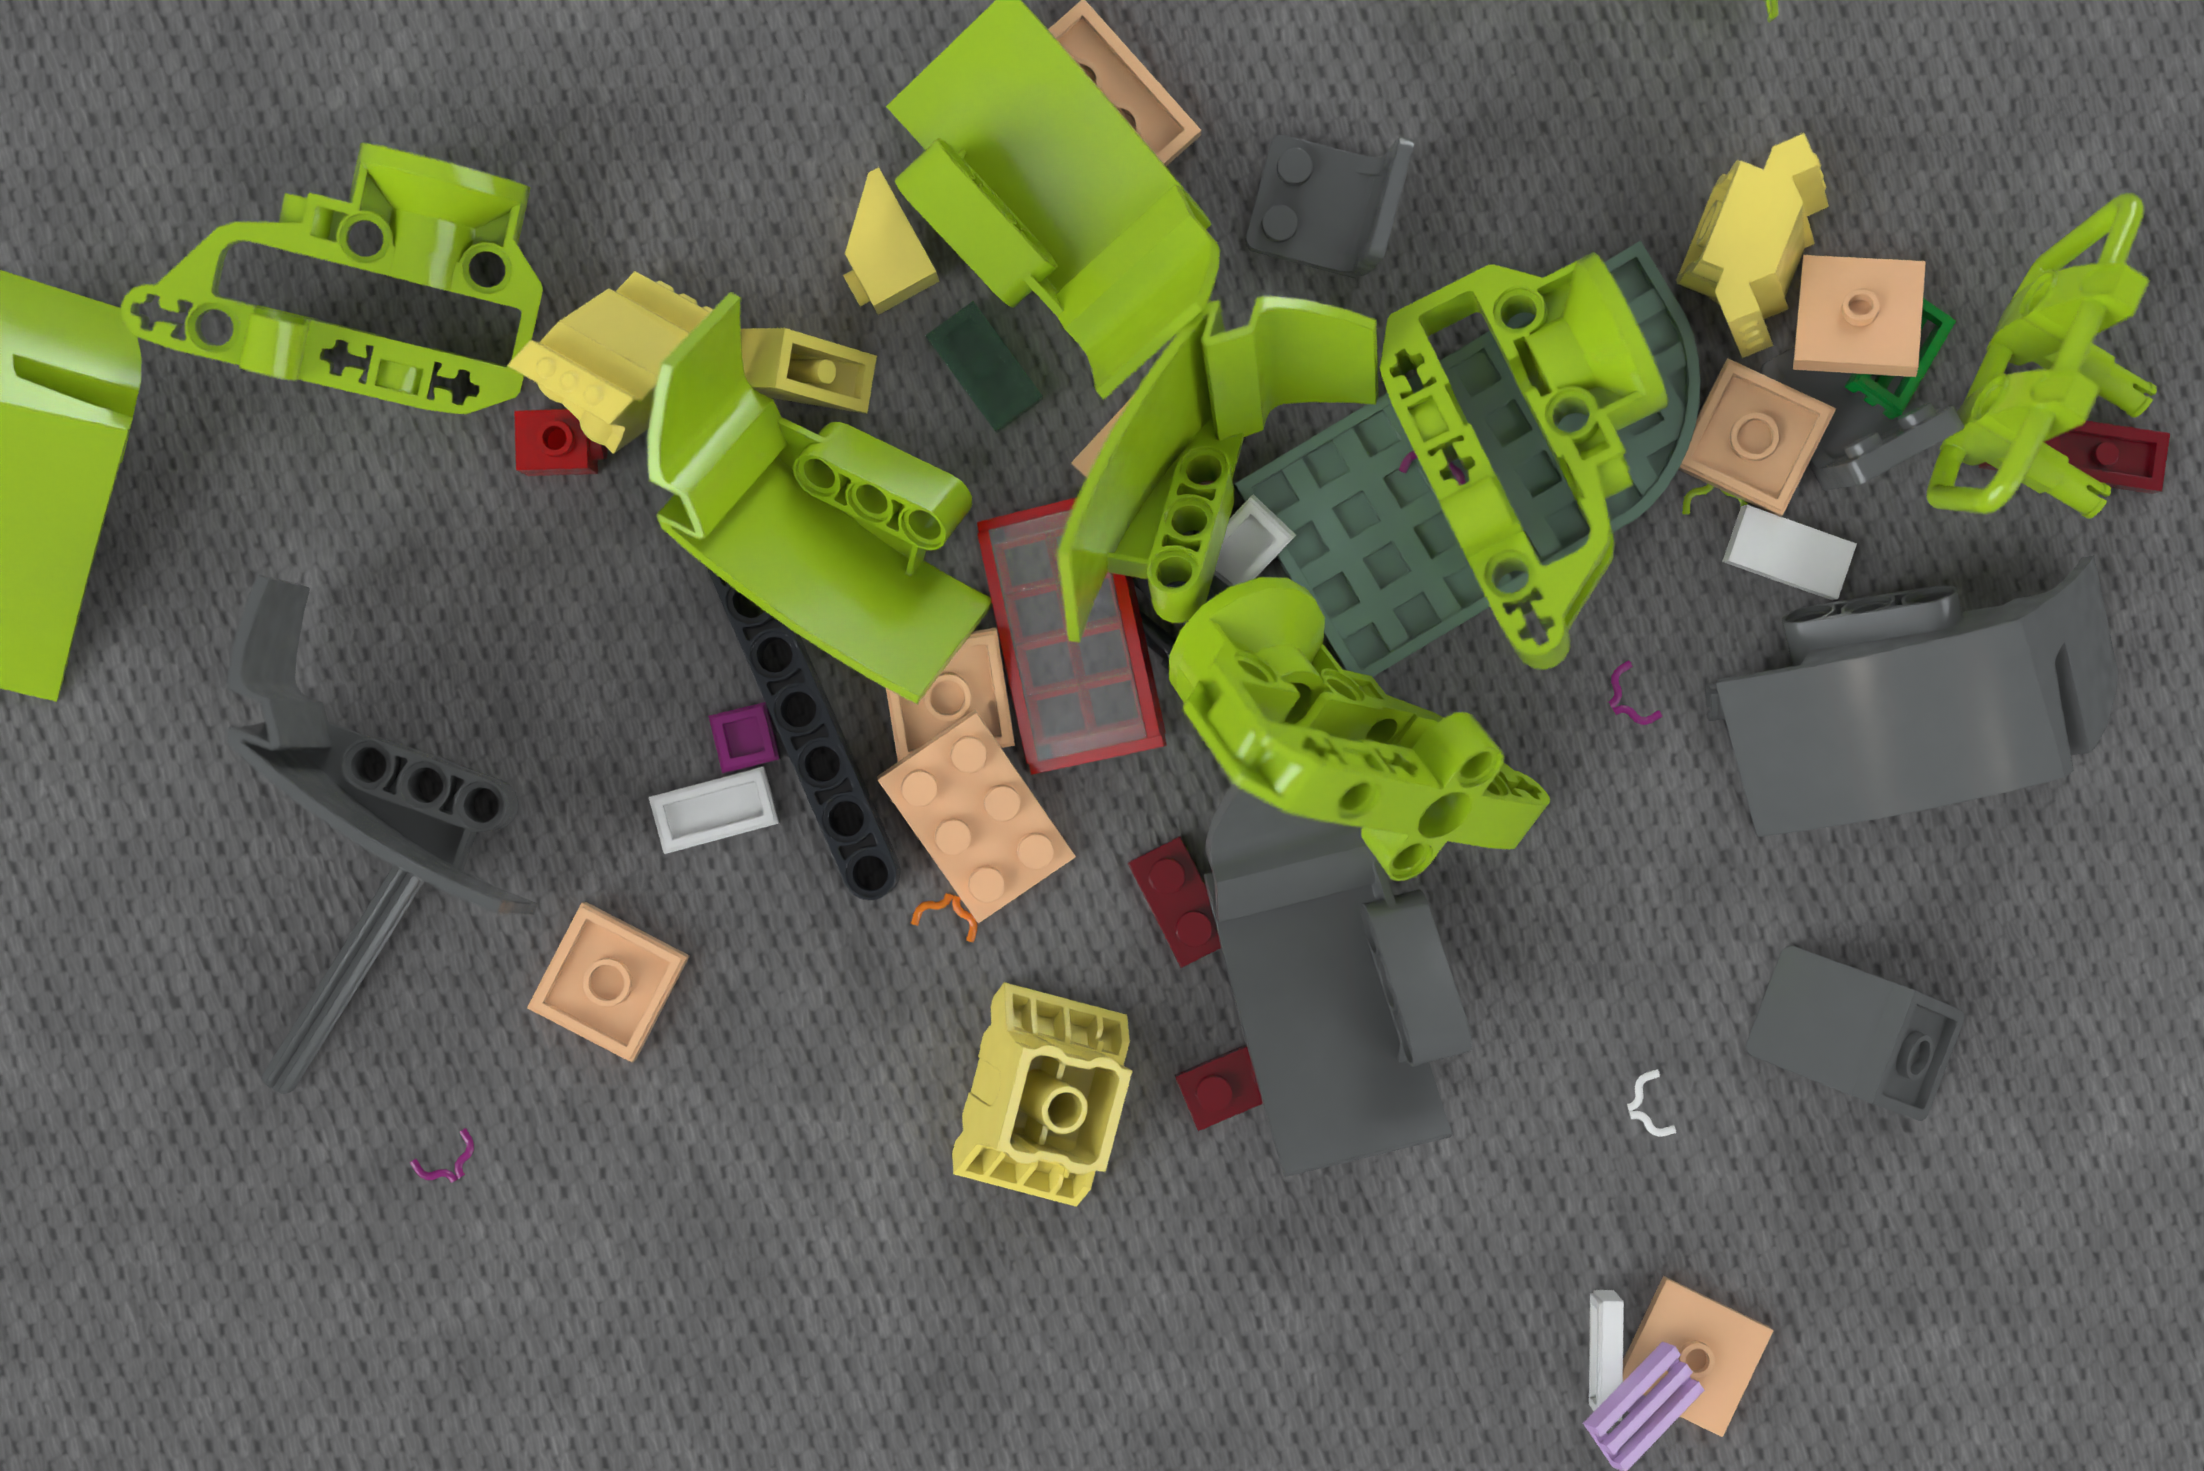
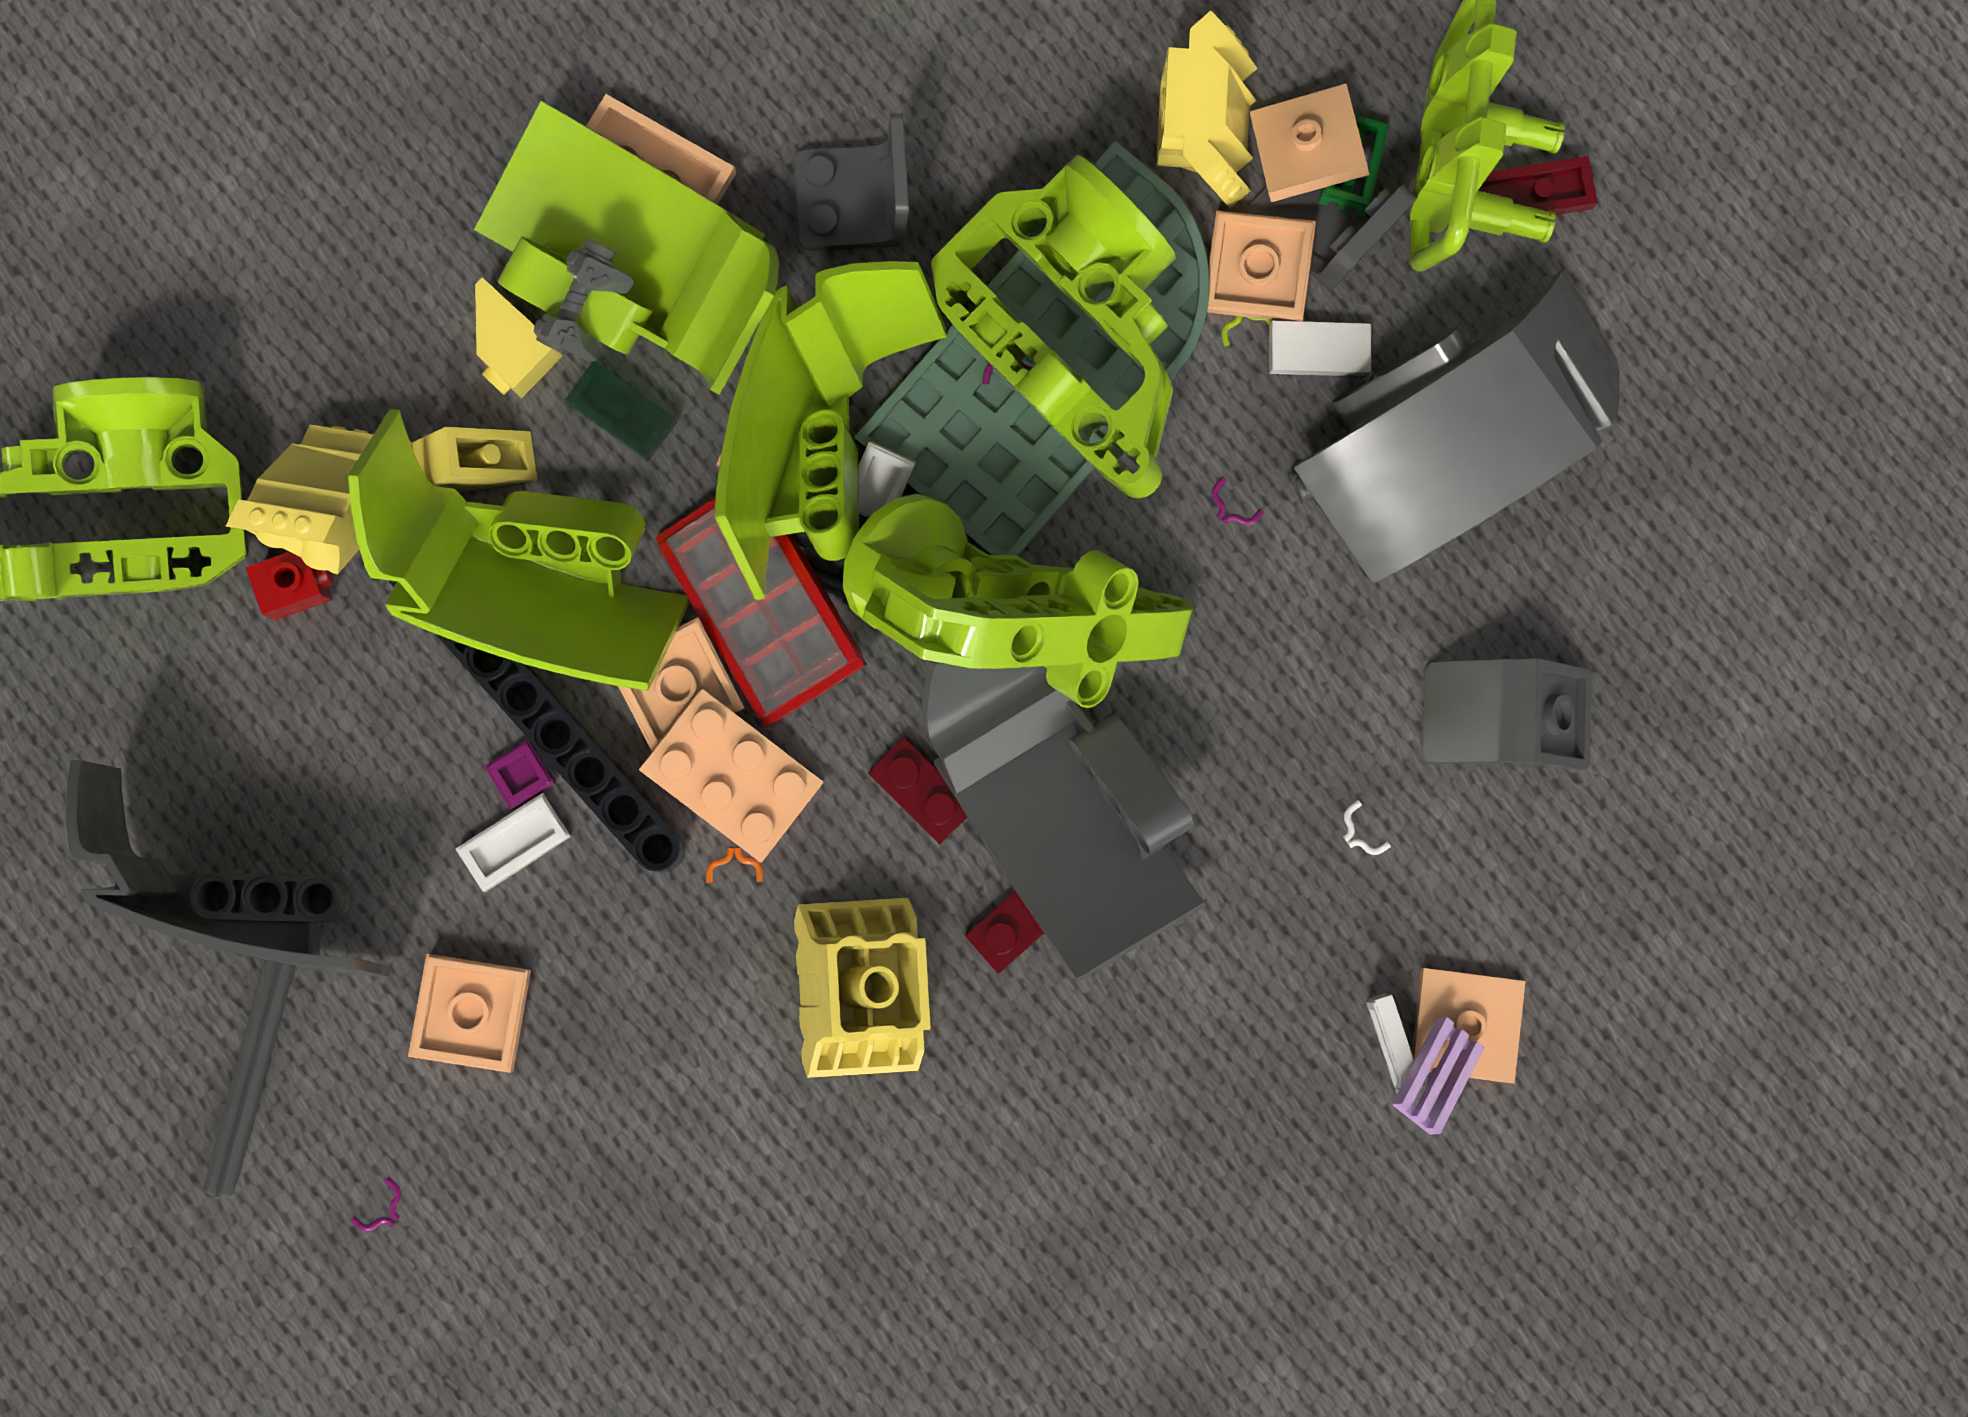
camera: 25 degrees left, 5 degrees down
(1004, 207) = (591, 272): none -> dark grey piece

